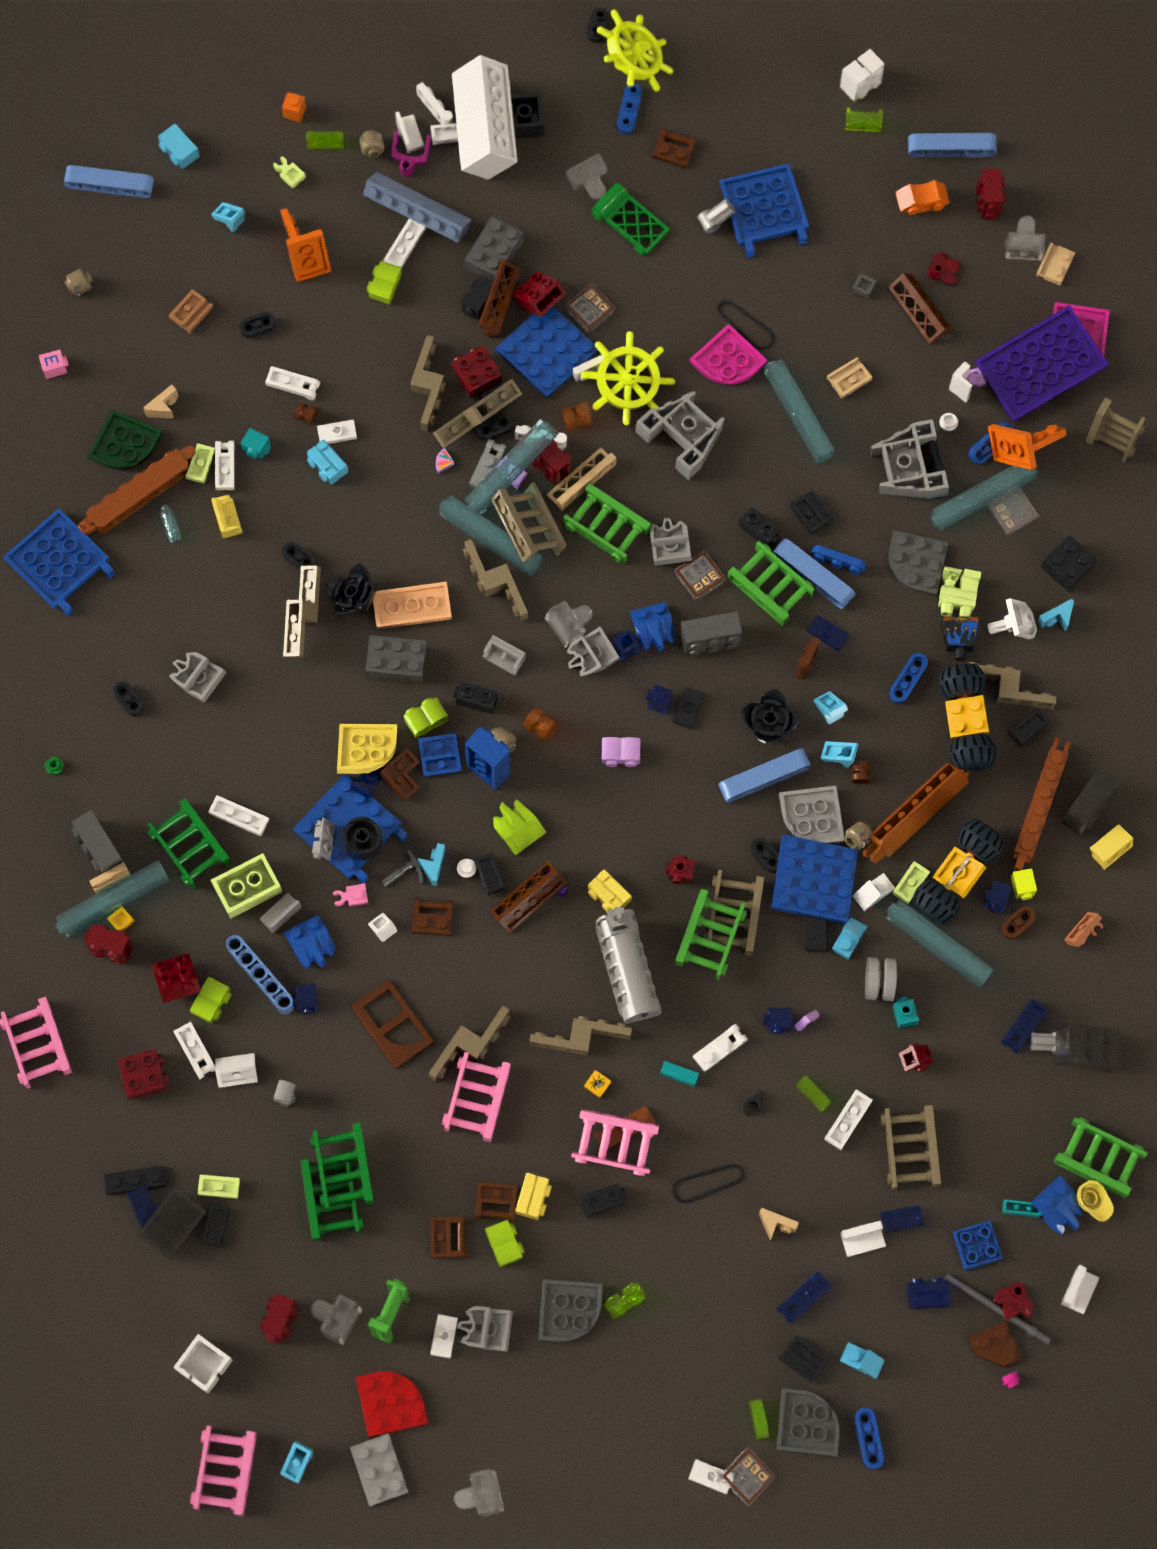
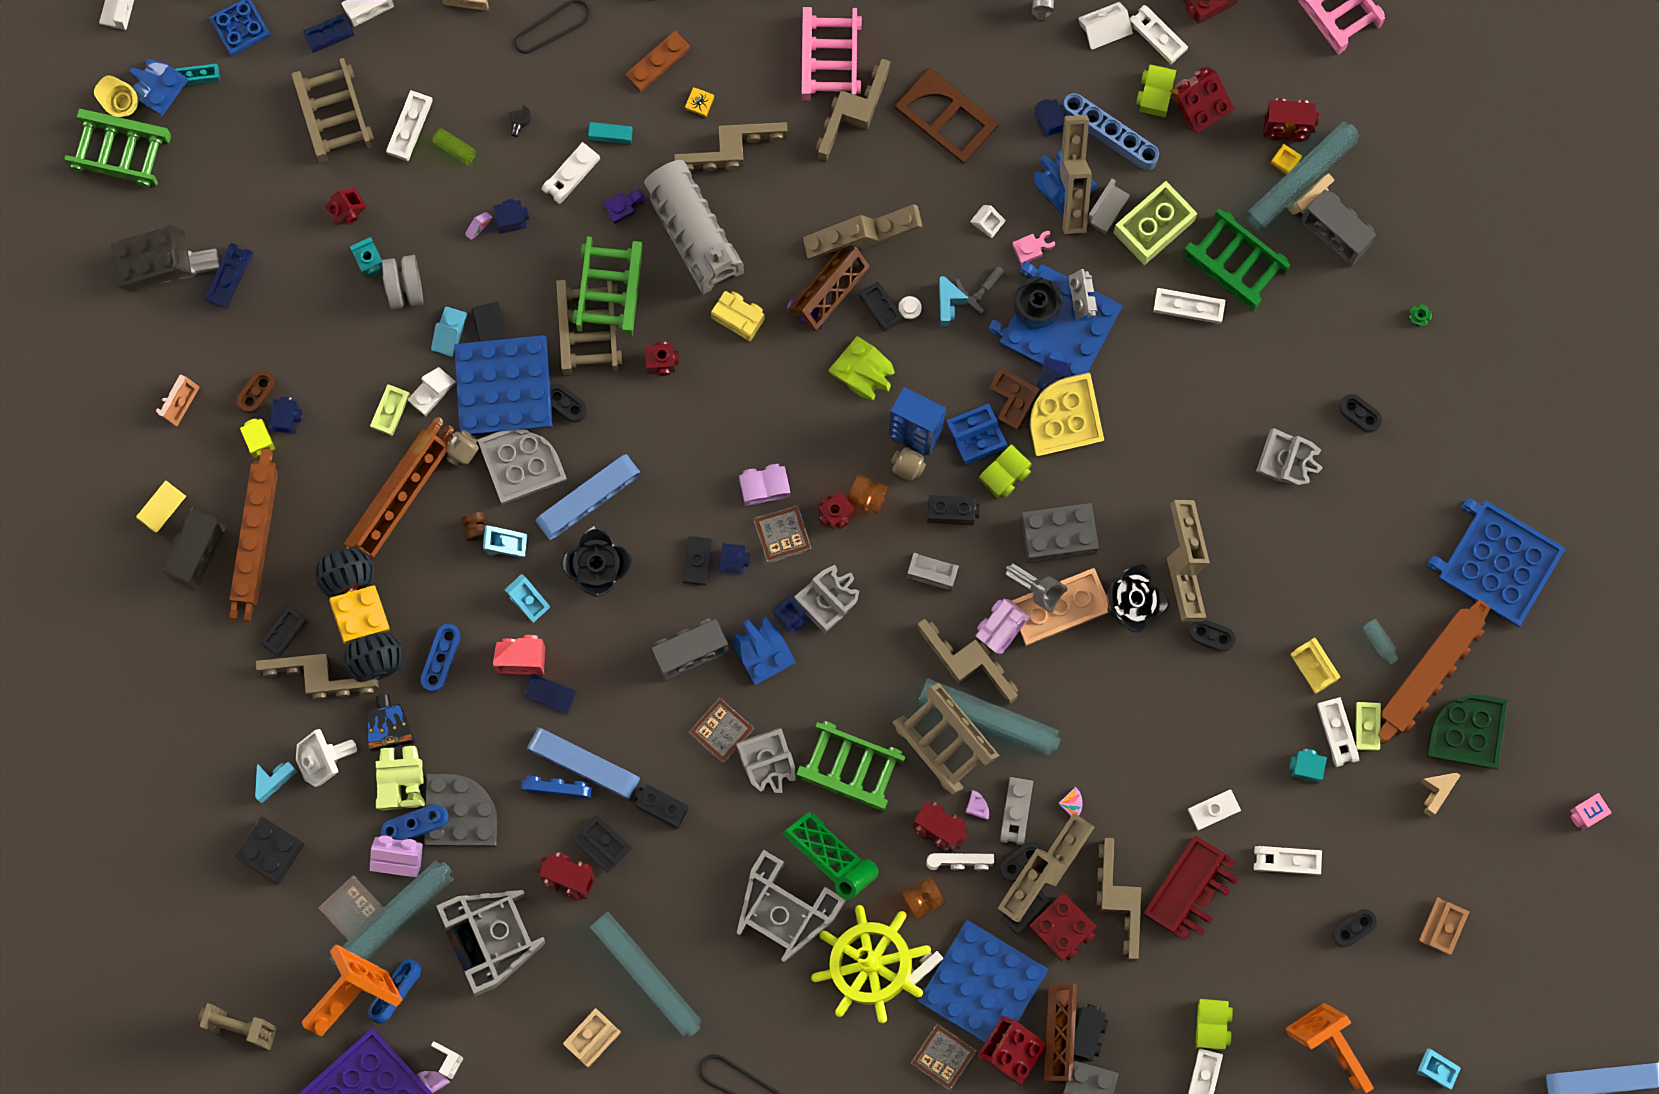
camera: 165 degrees right, 5 degrees up
(78, 282) = (1596, 929): dark tan head -> none
(301, 933) = (1075, 174): none -> dark tan bracket
(306, 412) = (1259, 823): reddish brown wheel -> none
(327, 461) = (1214, 764): medium azure brick -> none
(373, 380) = (1188, 886): none -> dark red hinge
(421, 610) = (1045, 591): none -> dark grey piece
(432, 923) = (933, 237): reddish brown plate -> none
(461, 596) = (1002, 625): none -> lavender brick
(489, 933) = (862, 232): none -> dark tan bracket
(511, 465) = (984, 797): clear light blue brick -> none
(568, 622) = (865, 627): clear brick -> none
(569, 715) = (836, 504): none -> dark red brick
(591, 477) = (889, 815): tan fence -> none
(616, 712) = (782, 534): none -> tile
(621, 443) = (851, 876): none -> green piece
(628, 1126) = (664, 56): bright pink fence -> none
(684, 1009) = (620, 206): none -> dark purple plate
(728, 358) = (751, 1027): dark pink plate -> none
(766, 601) = (632, 714): bright green fence -> none
(806, 660) = (565, 653): reddish brown plate -> none
(844, 489) = (559, 872): none -> dark red brick
(846, 659) = (520, 656): none -> coral slope
(939, 943) = (343, 345): clear light blue brick -> none
(947, 559) = (423, 823): none -> blue plate
(948, 422) = (454, 1009): white plate -> none
(959, 871) = (335, 430): black plate -> none
(972, 535) = (396, 856): none -> lavender brick

